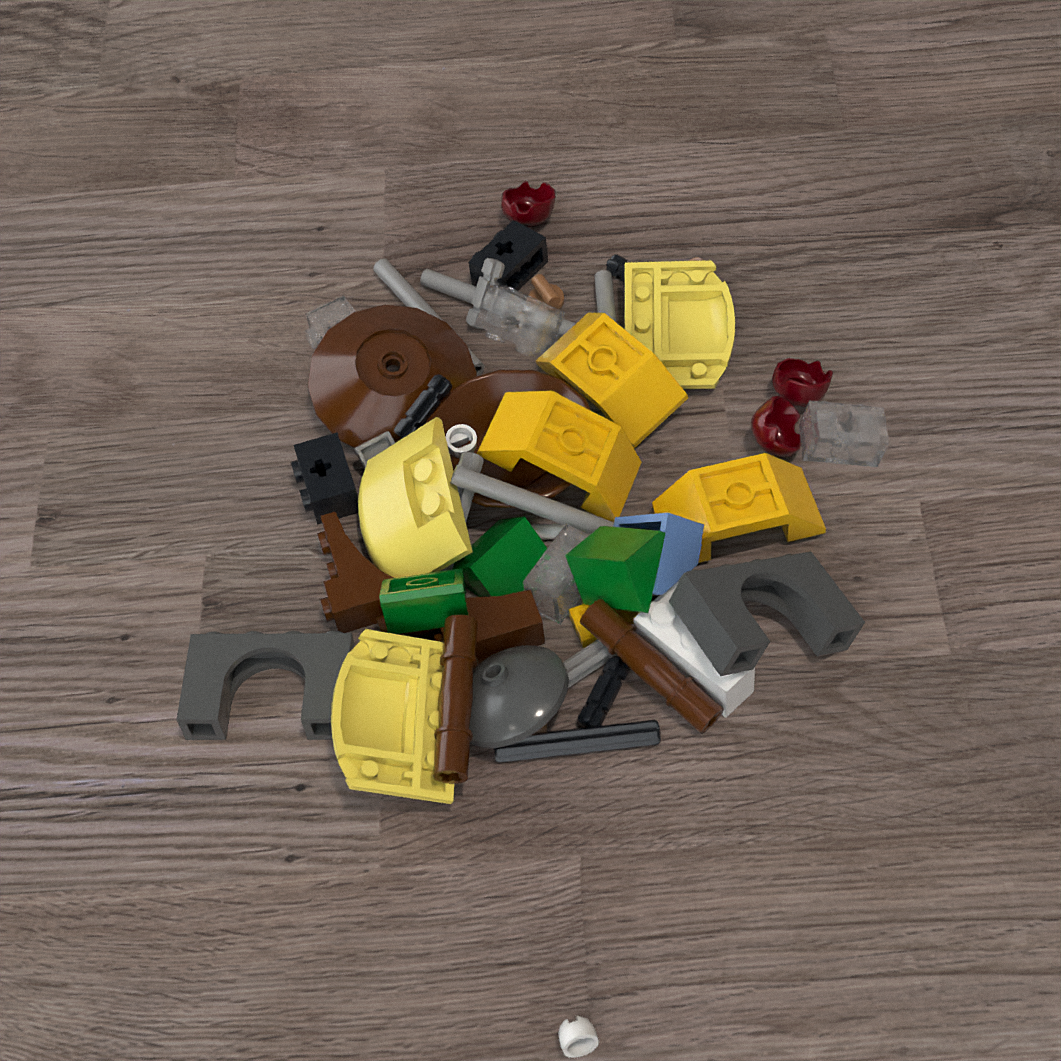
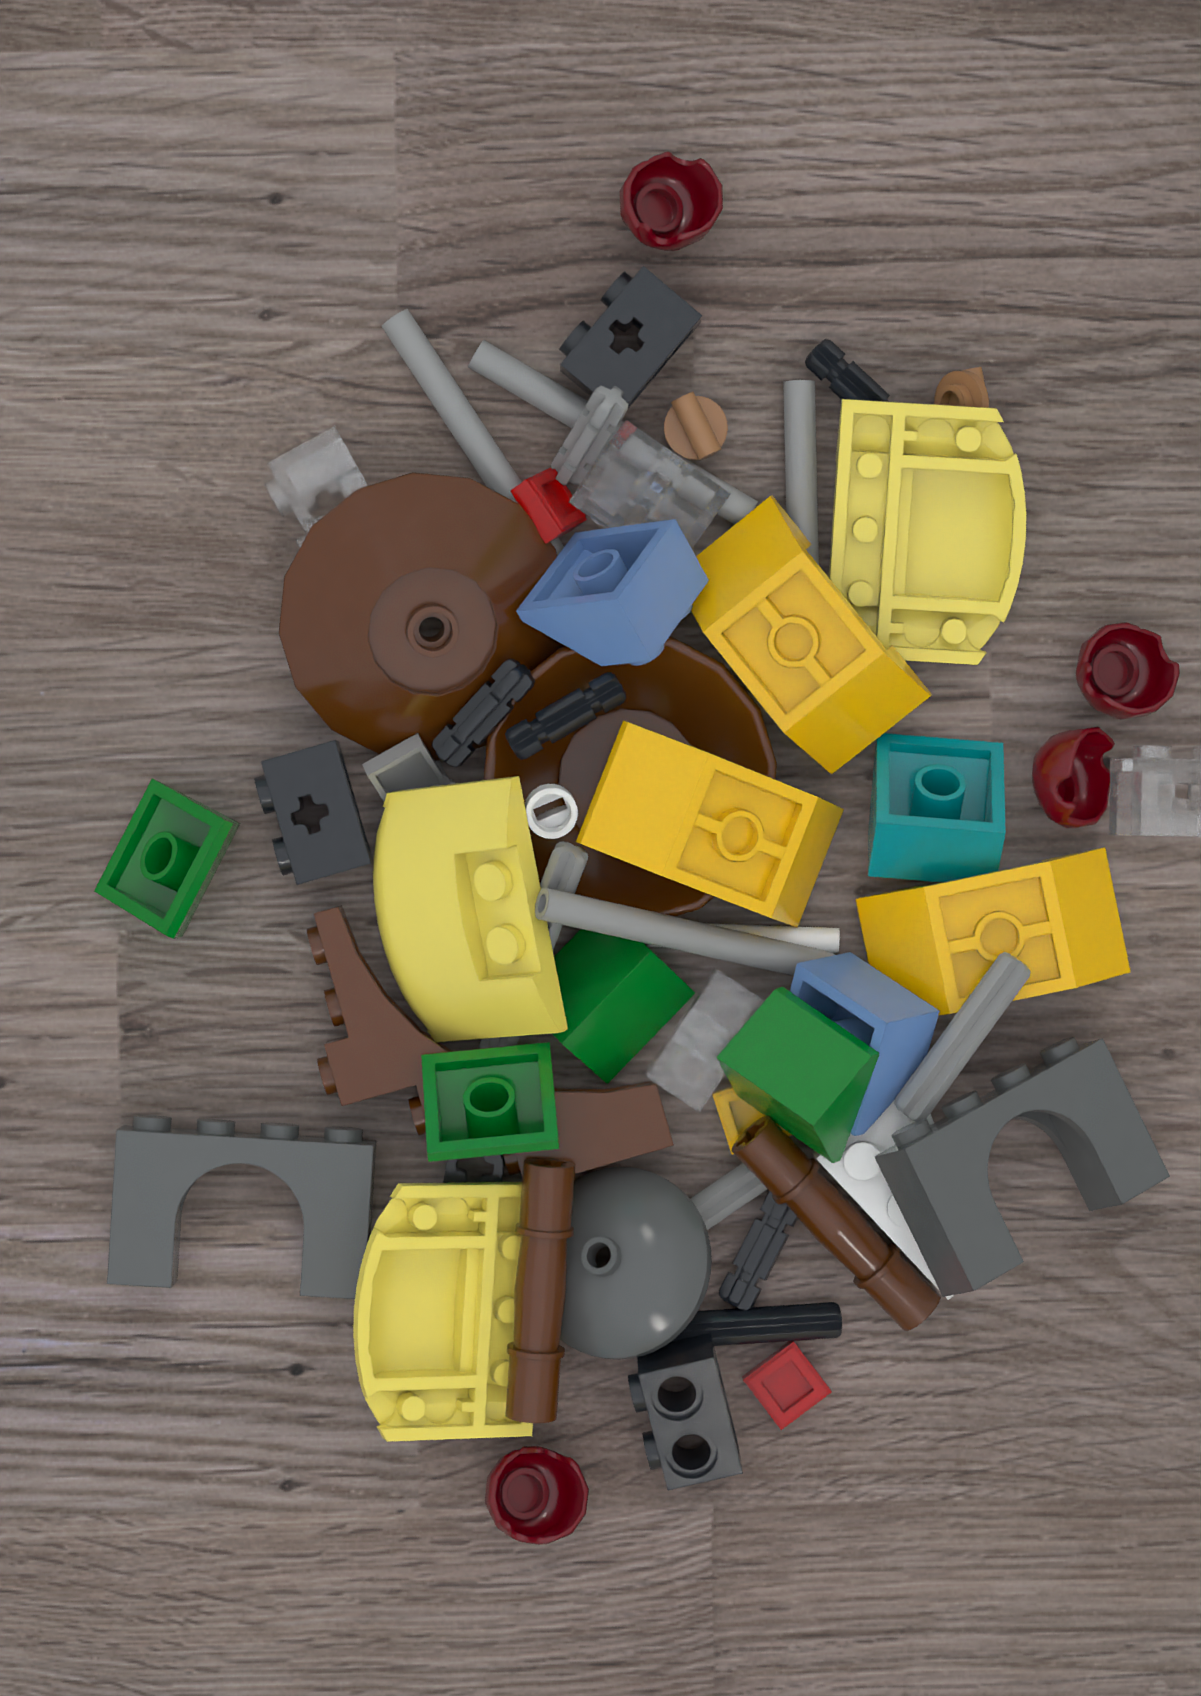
camera: 10 degrees left, 35 degrees up
(242, 509) = (166, 859): none -> green slope
(456, 840) = (536, 1495): none -> dark red hair
(464, 330) = (548, 505): none -> red tile
(470, 401) = (565, 715): none -> black axle
(503, 344) = (617, 592): none -> medium blue slope
(565, 777) = (695, 1410): none -> black brick
(626, 774) = (786, 1384): none -> red tile
(691, 449) = (936, 808): none -> teal slope
(723, 531) = (962, 1037): none -> light grey axle

